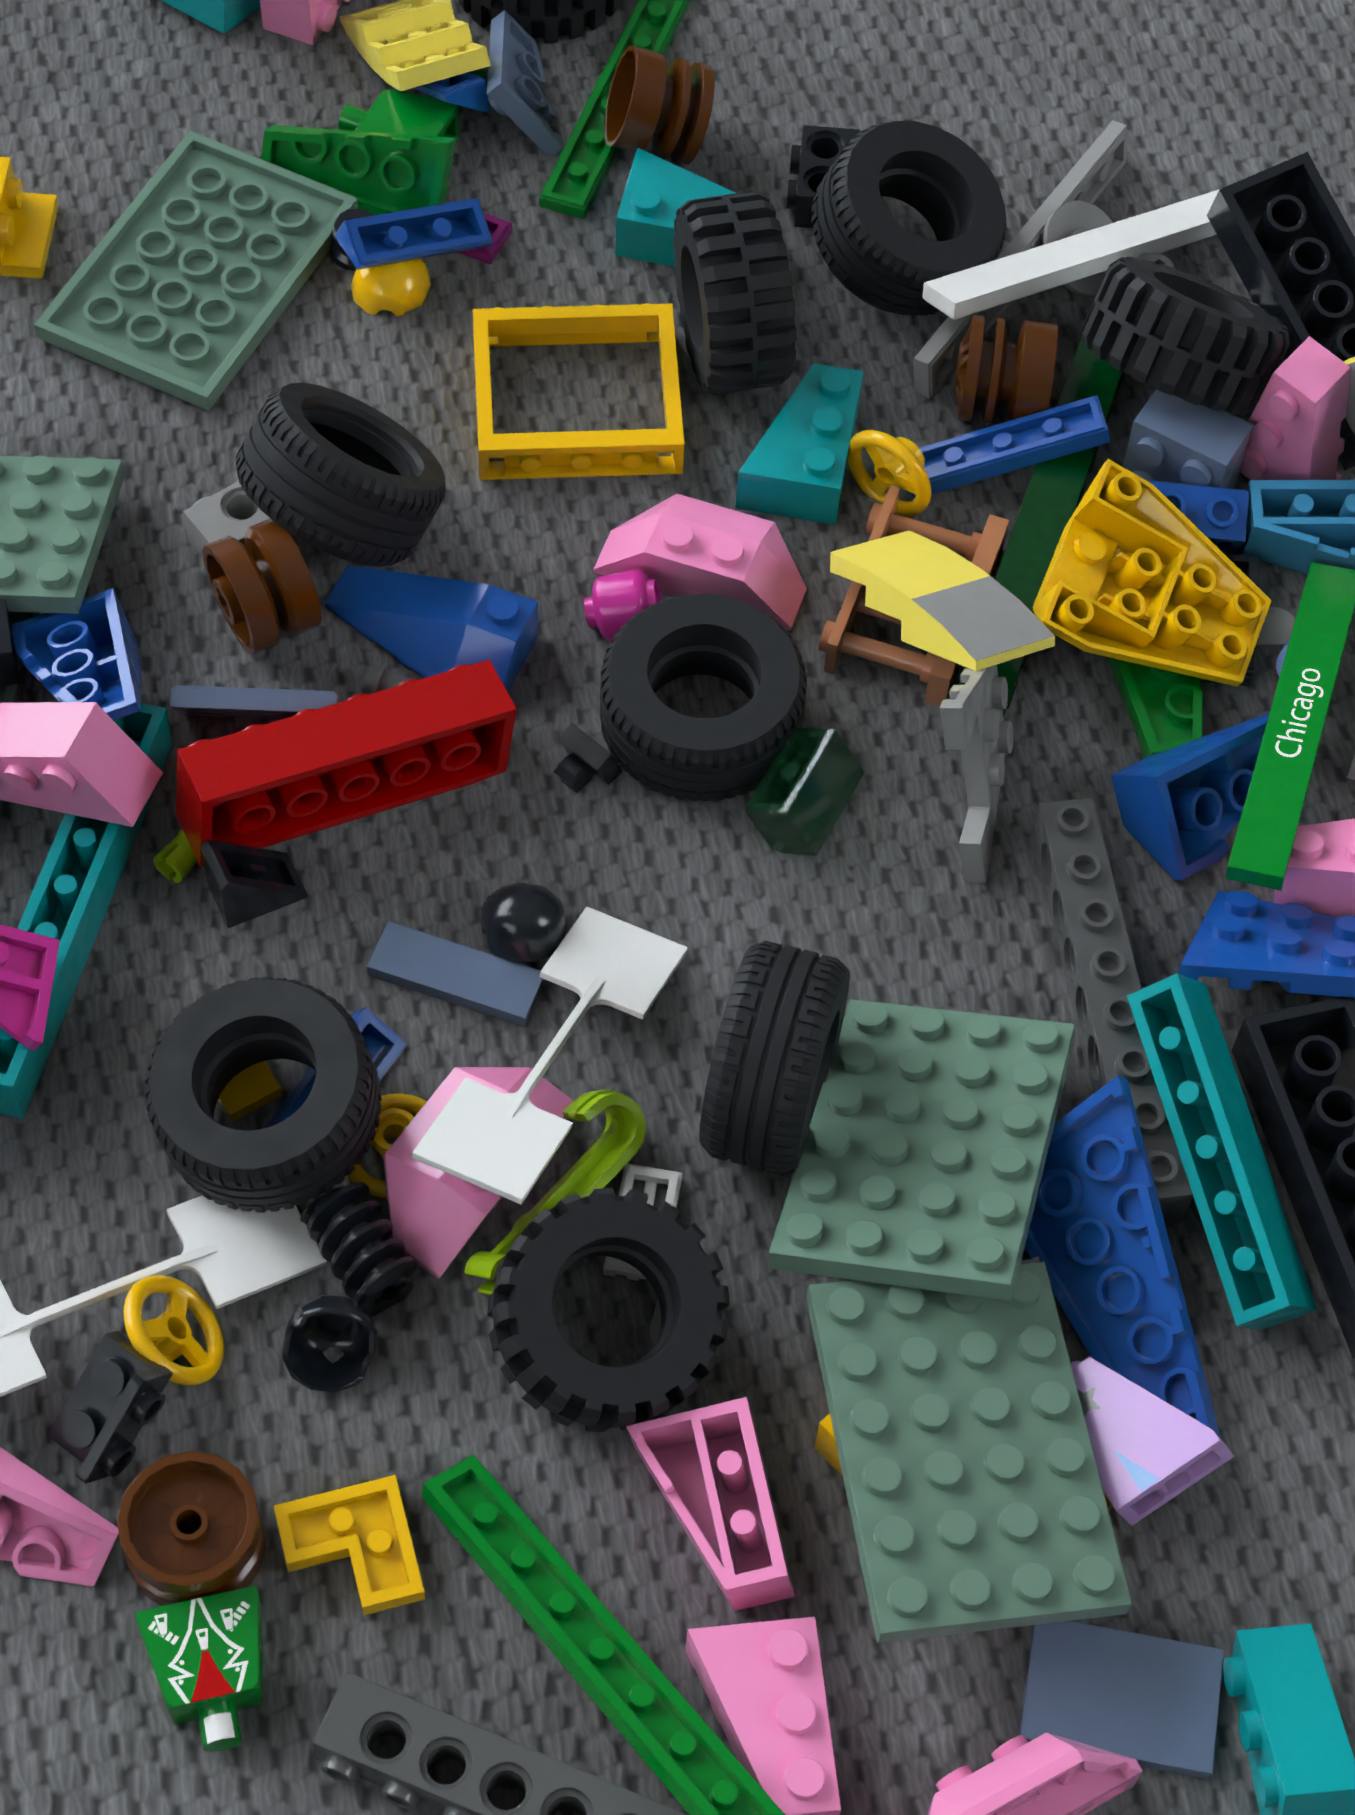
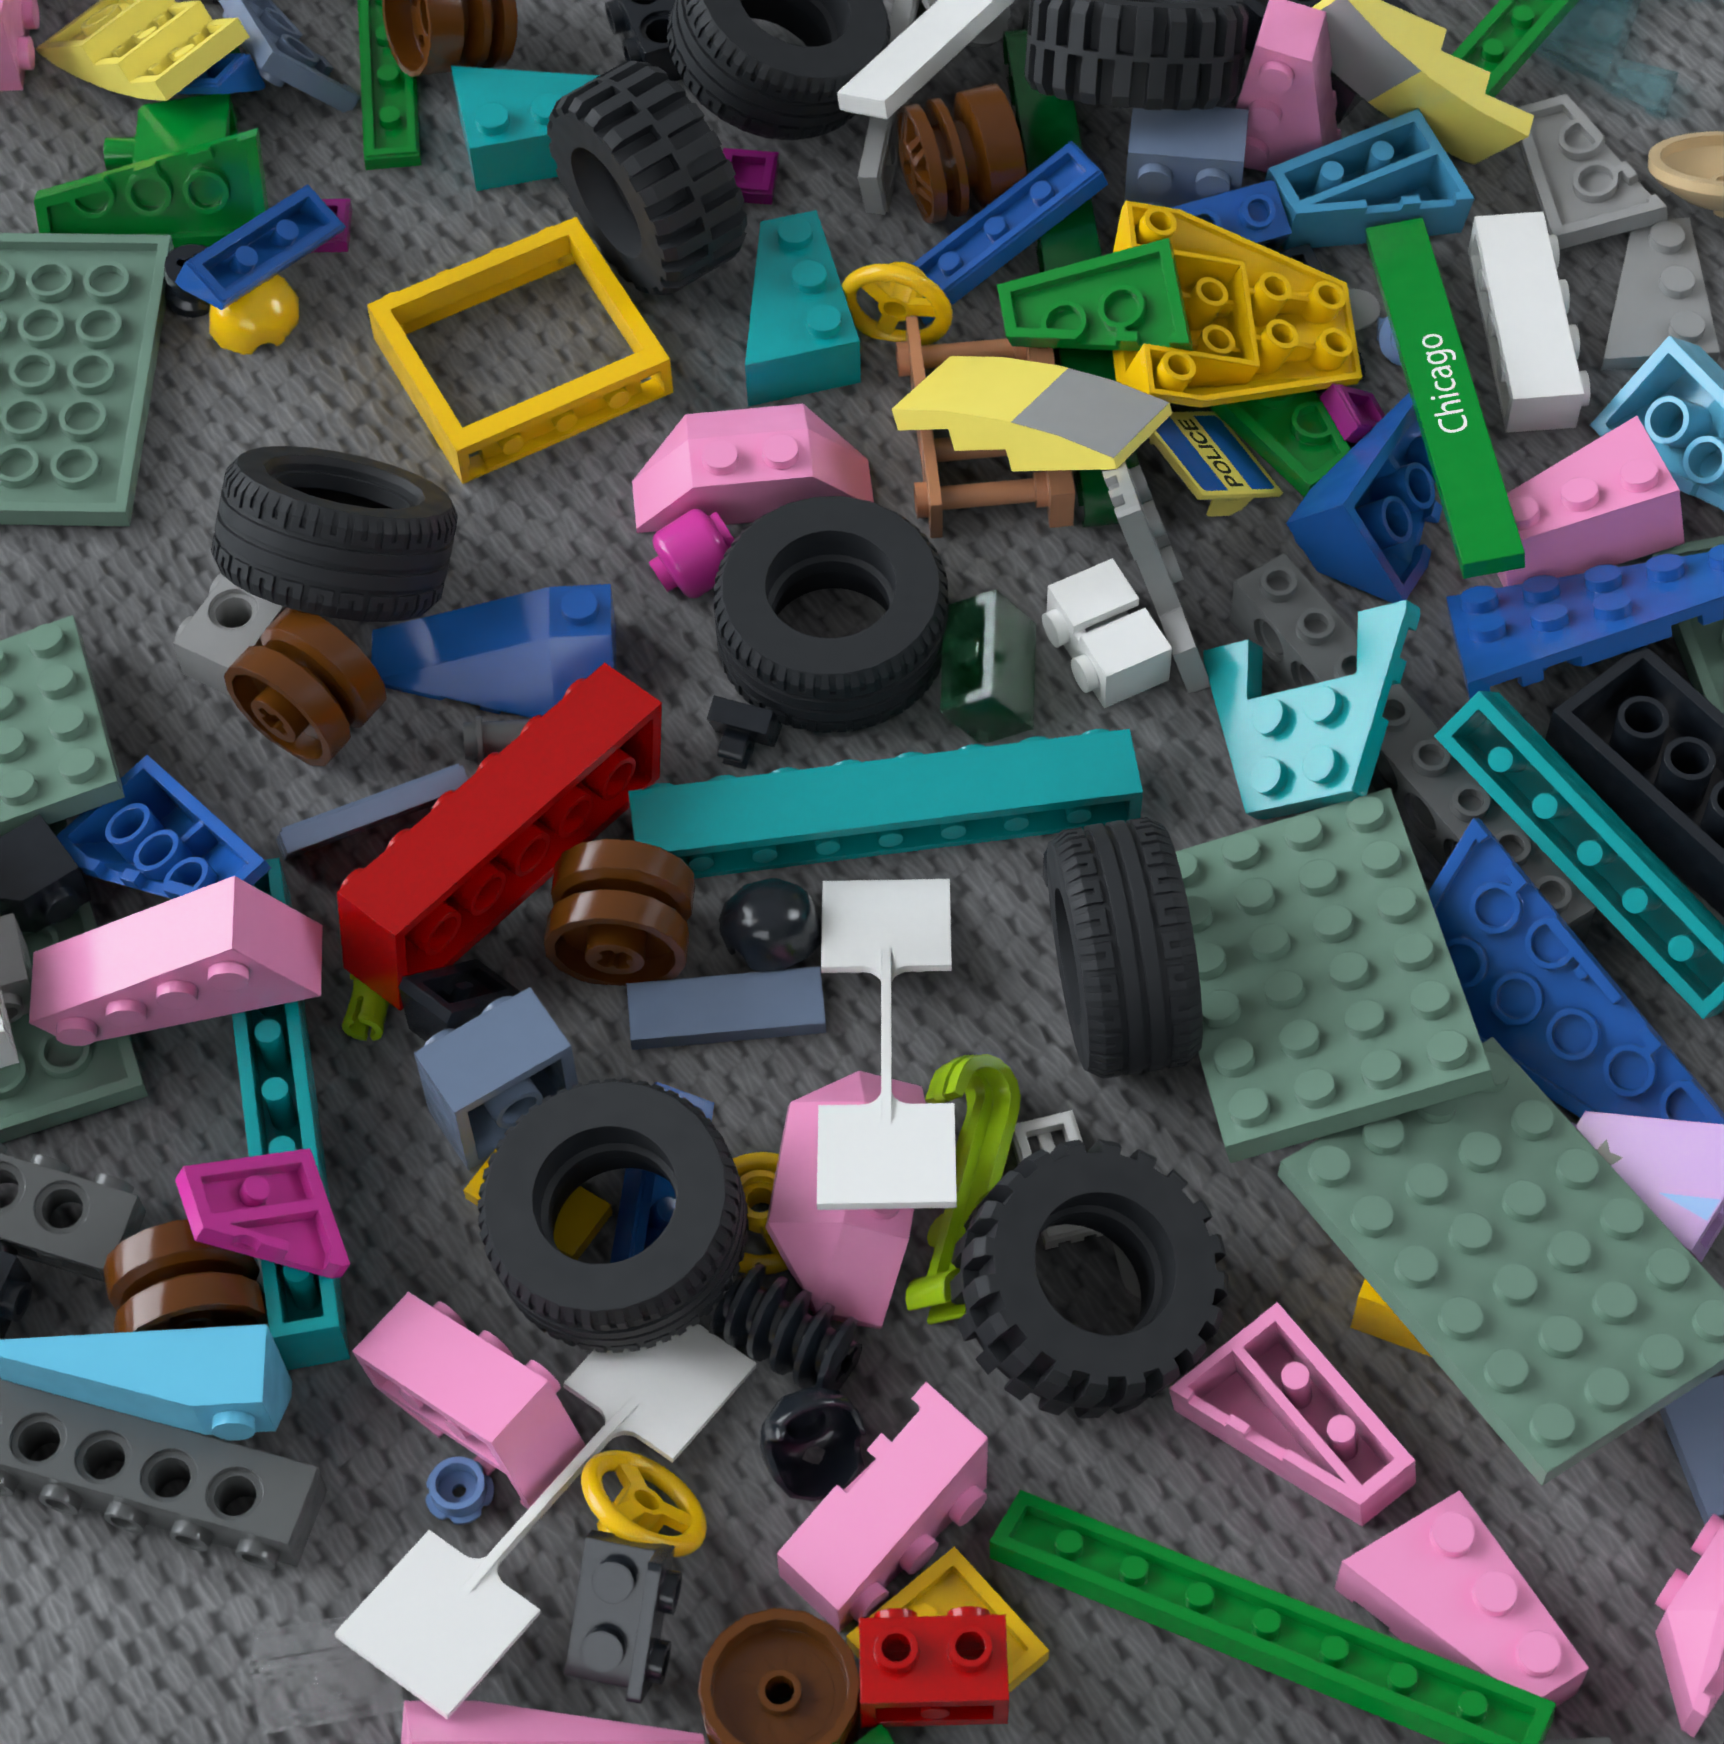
camera: 20 degrees left, 0 degrees up
(43, 1242) = (458, 1473): none -> medium blue plate
(92, 1185) = (472, 1393): none -> bright pink wedge
(238, 938) = (493, 1072): none -> sand blue brick
(315, 1561) = (933, 1668): none -> red brick
(357, 1425) = (888, 1513): none -> bright pink wedge
(404, 862) = (619, 913): none -> reddish brown wheel
(665, 867) = (892, 803): none -> teal brick
(834, 325) = (755, 173): none -> magenta tile
(919, 812) = (1110, 649): none -> white piece
(1035, 959) = (1314, 740): none -> wing
(1047, 534) = (1100, 303): none -> green wing
(1081, 700) = (1212, 461): none -> piece
(1221, 706) = (1352, 411): none -> magenta tile

